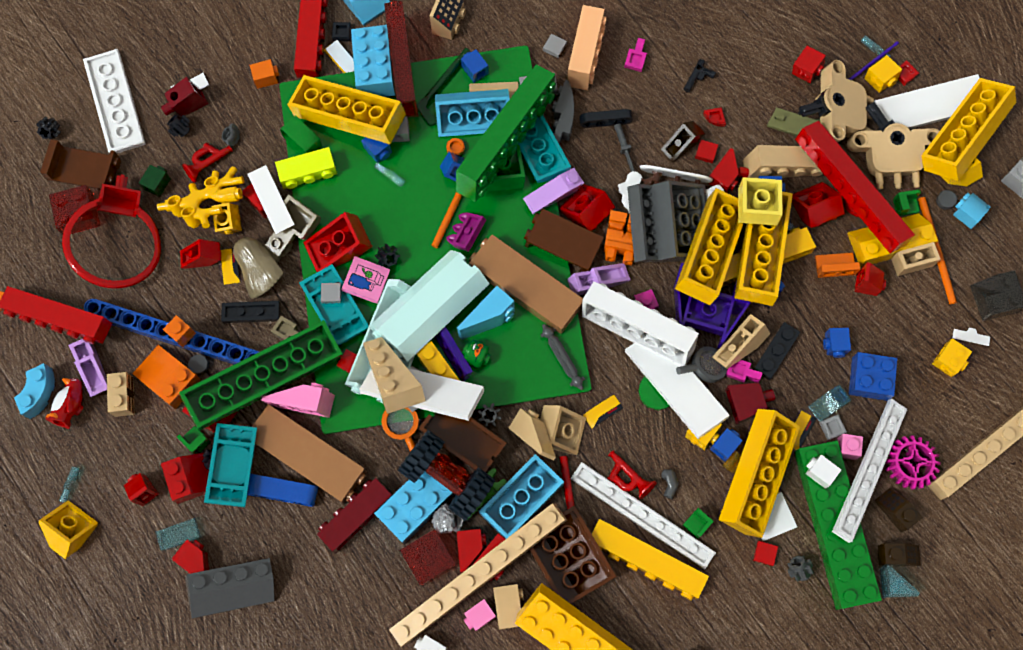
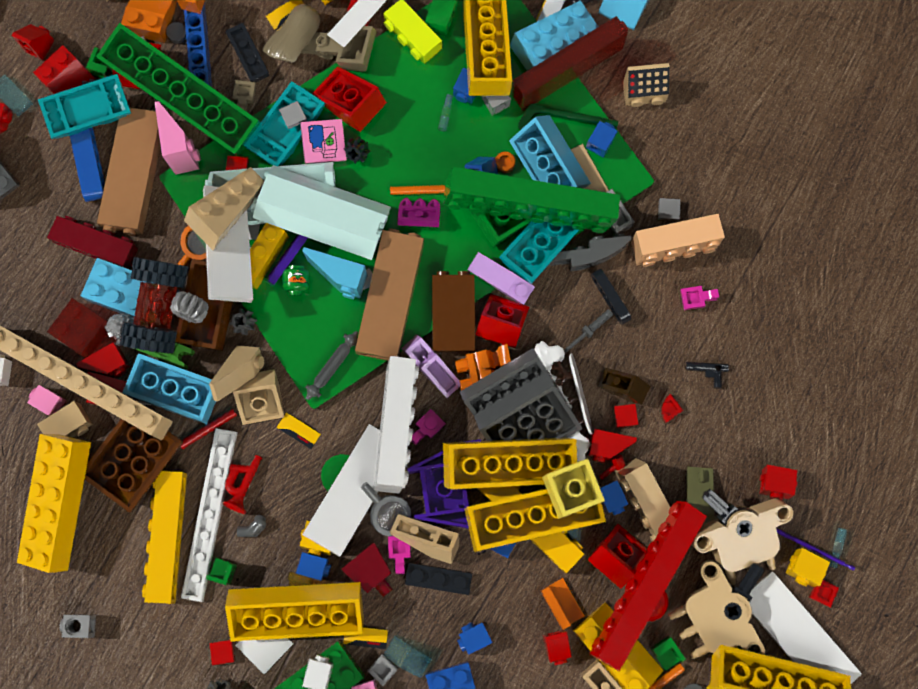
camera: 65 degrees right, 5 degrees up
(463, 445) = (189, 307): none -> light grey gear

